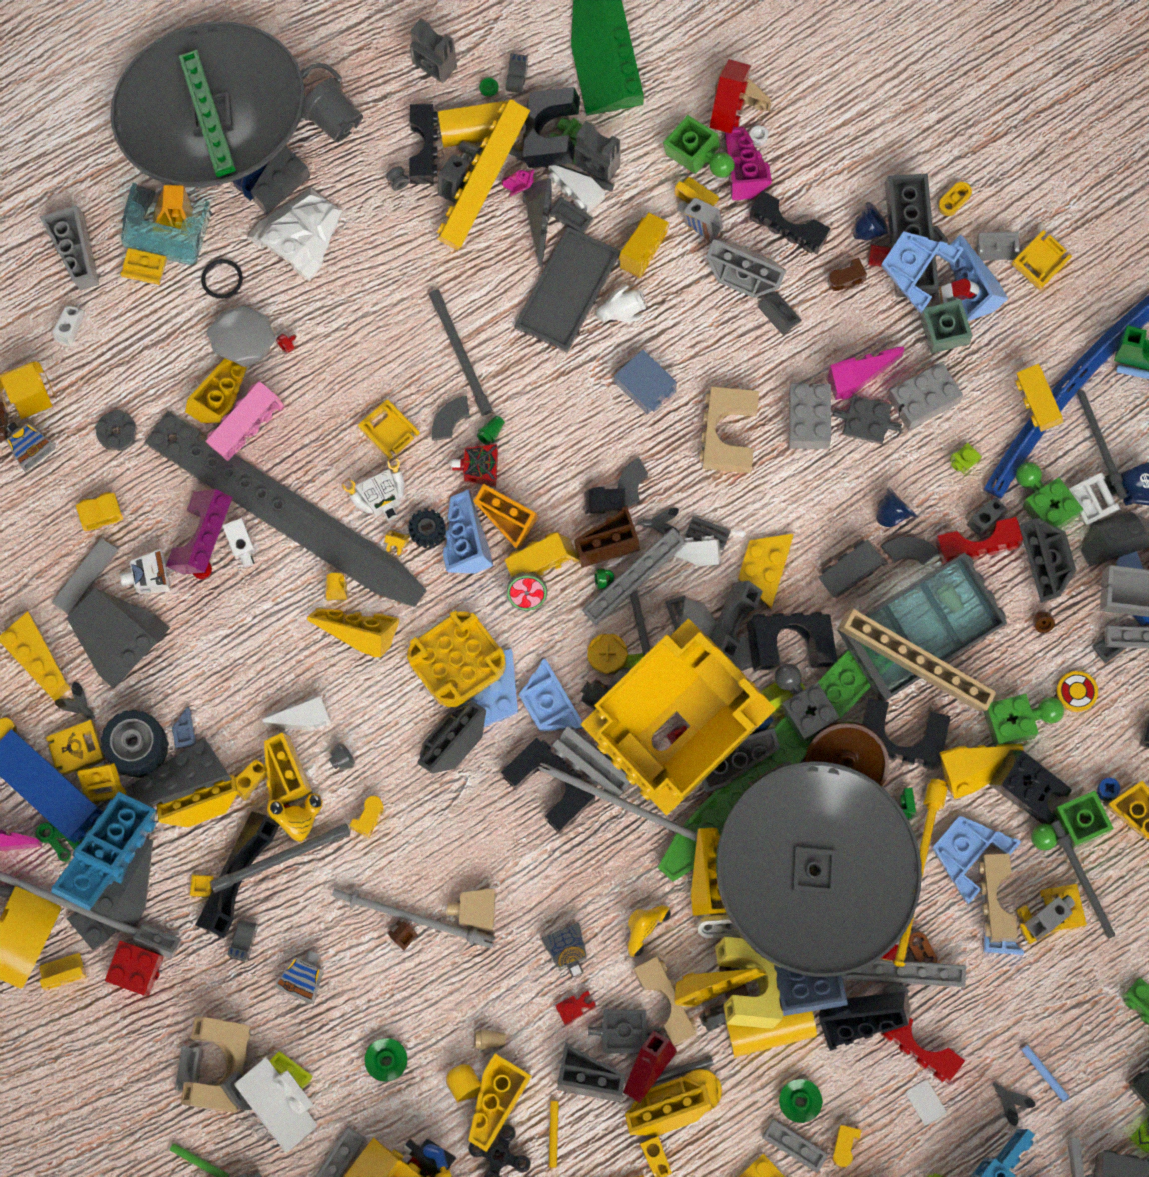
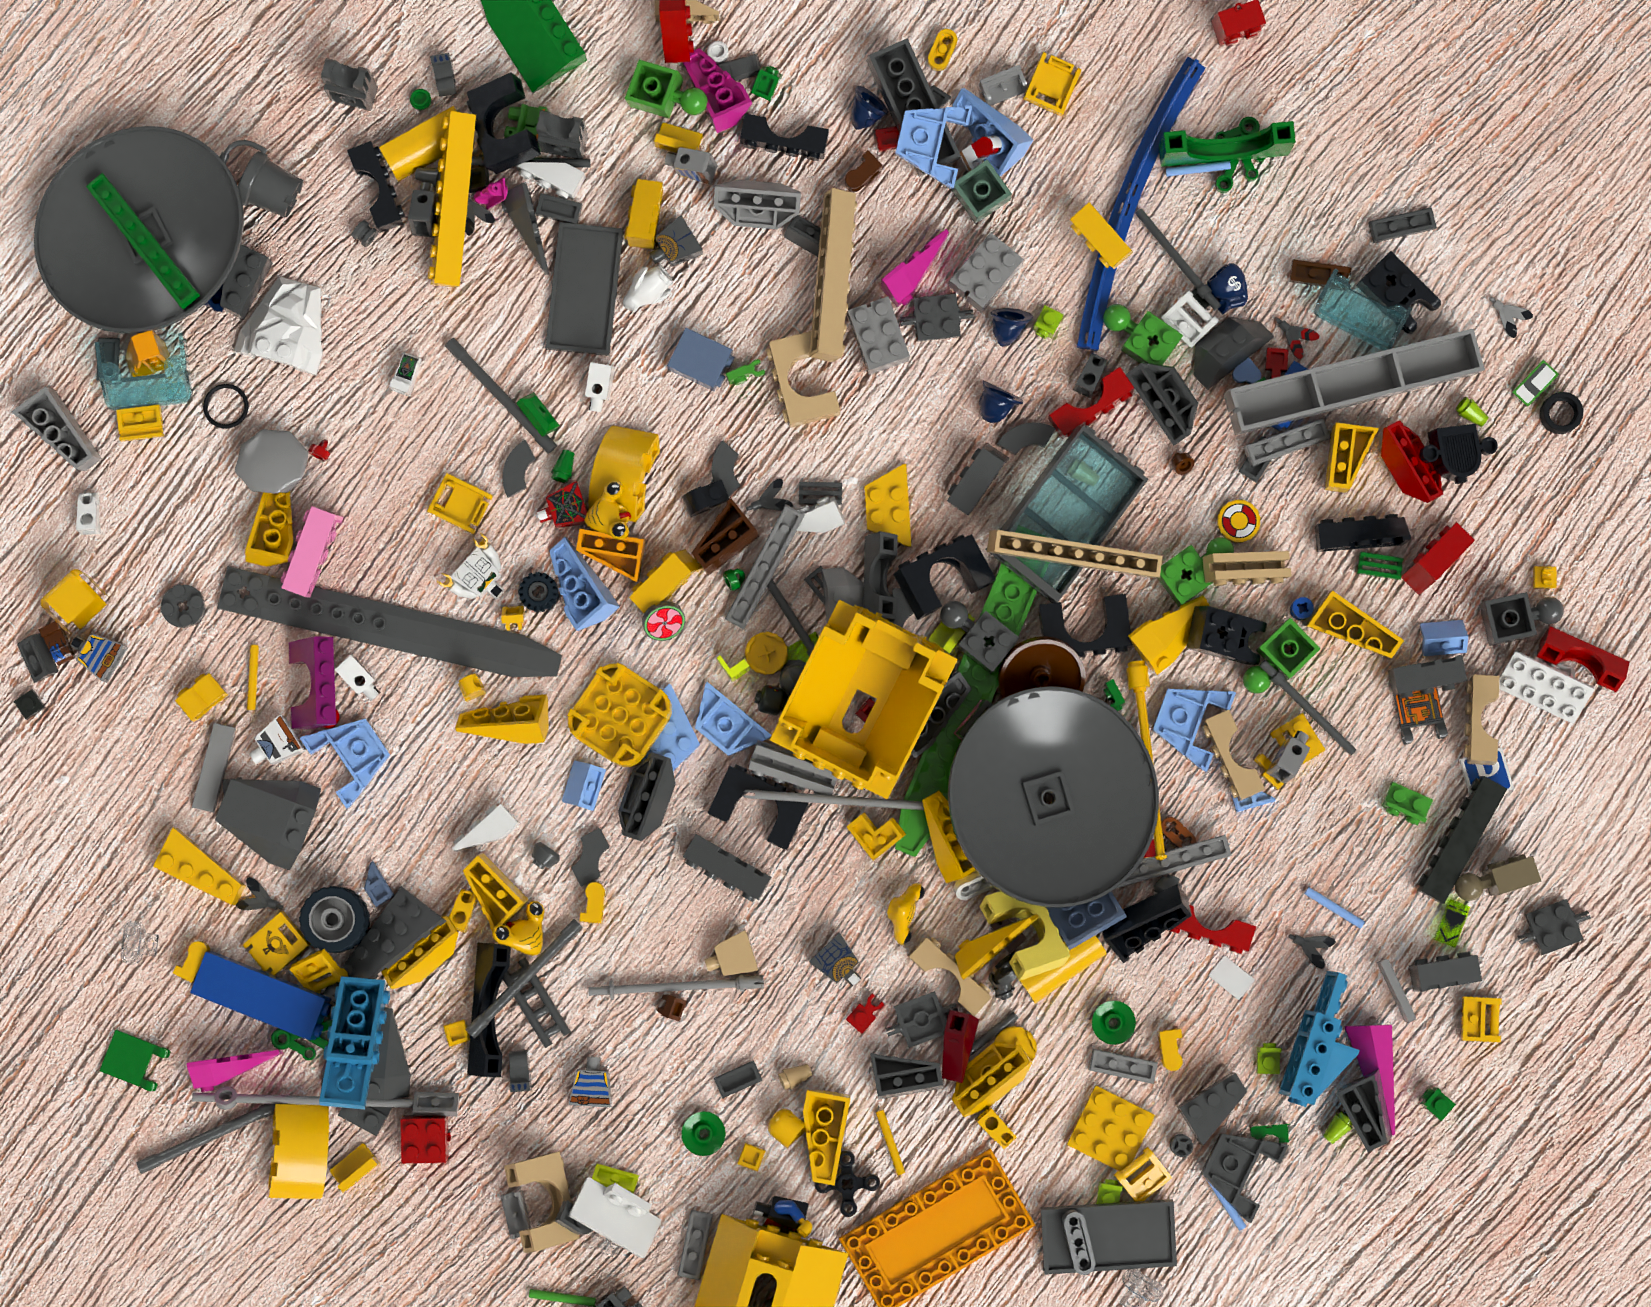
camera: 25 degrees left, 10 degrees up
(150, 512) = (252, 679): none -> yellow bar
(216, 608) = (358, 749): none -> light blue wing
(292, 893) = (548, 1007): none -> dark grey bar
(385, 306) = (406, 374): none -> leg
(388, 766) = (587, 867): none -> dark grey tile
(401, 709) = (583, 785): none -> light blue panel
(421, 1098) = (751, 1157): none -> yellow tile
(436, 1023) = (738, 1079): none -> dark grey tile
(486, 378) = (538, 414): none -> green piece
(497, 191) = (473, 210): none -> dark grey piece
(499, 828) = (726, 867): none -> dark grey wedge
(511, 166) = (478, 179): none -> pearl dark grey plate
(512, 480) = (608, 515): none -> yellow head
(537, 451) = (624, 458): none -> yellow panel
(553, 363) = (597, 375): none -> white torso
(574, 657) = (736, 671): none -> neon yellow panel
(643, 853) = (875, 840): none -> yellow plate
(661, 279) = (676, 244): none -> dark grey torso
(676, 406) = (740, 374): none -> bright green plate
(709, 1035) = (1004, 994): none -> dark grey plate
(775, 155) = (742, 67): none -> dark grey tile
(788, 350) = (833, 275): none -> tan brick
(791, 173) = (766, 82): none -> green bracket
(928, 448) = (1009, 324): none -> dark blue piece
(1070, 731) = (1246, 567): none -> tan brick

